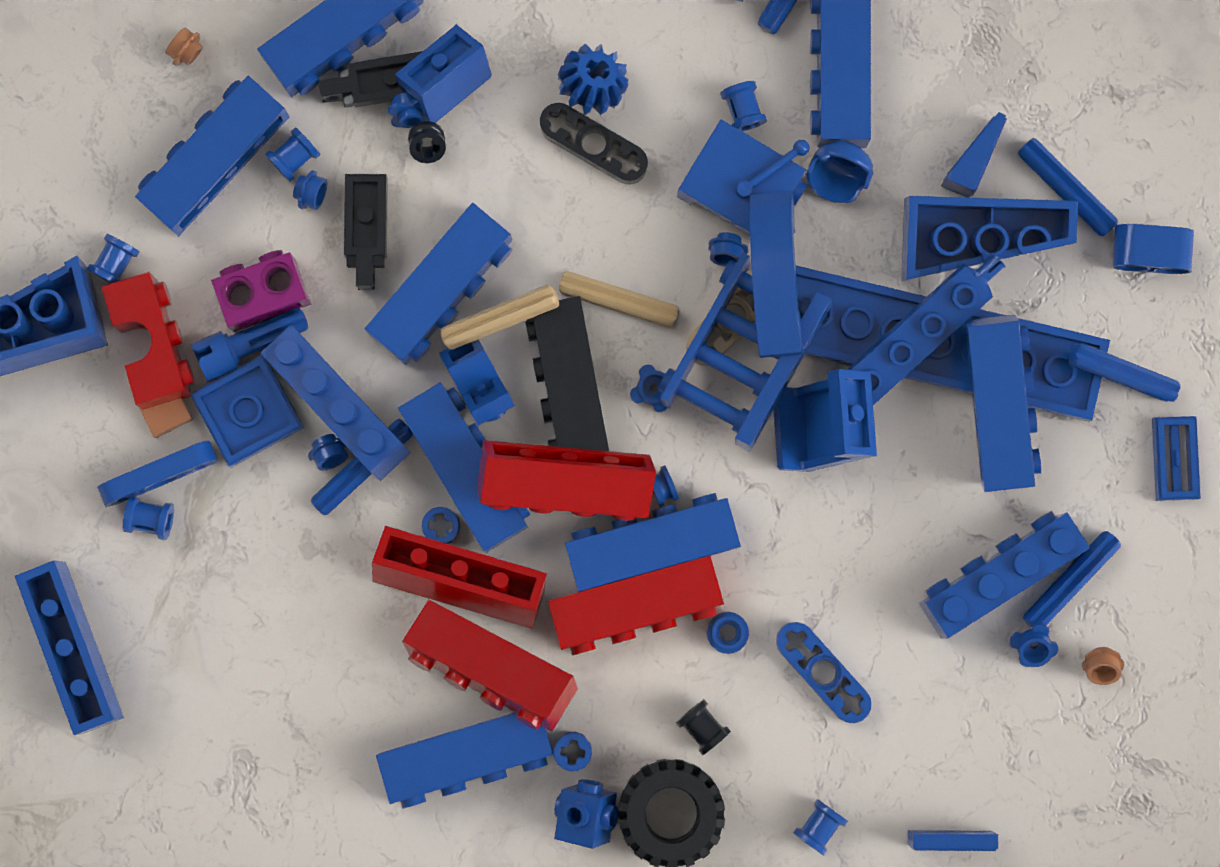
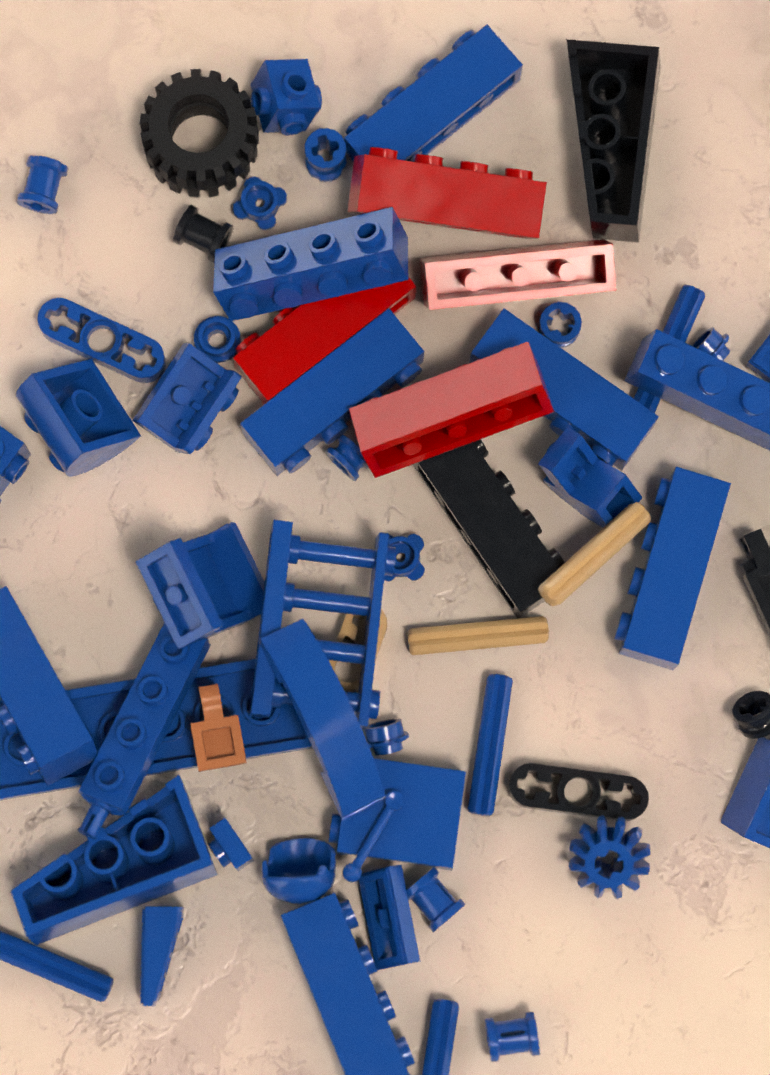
camera: 155 degrees right, 5 degrees down
(319, 676) = (615, 121): none -> black wedge
(627, 652) = (311, 264): none -> blue brick
(646, 209) = (490, 745): none -> blue axle
(656, 735) = (256, 190): none -> blue plate
(773, 588) = (188, 400): none -> blue bracket
(784, 106) = (389, 917): none -> blue tile
(864, 298) = (218, 738): none -> nougat plate
(870, 611) = (76, 416): none -> blue brick
(887, 214) = (228, 846): none -> blue plate

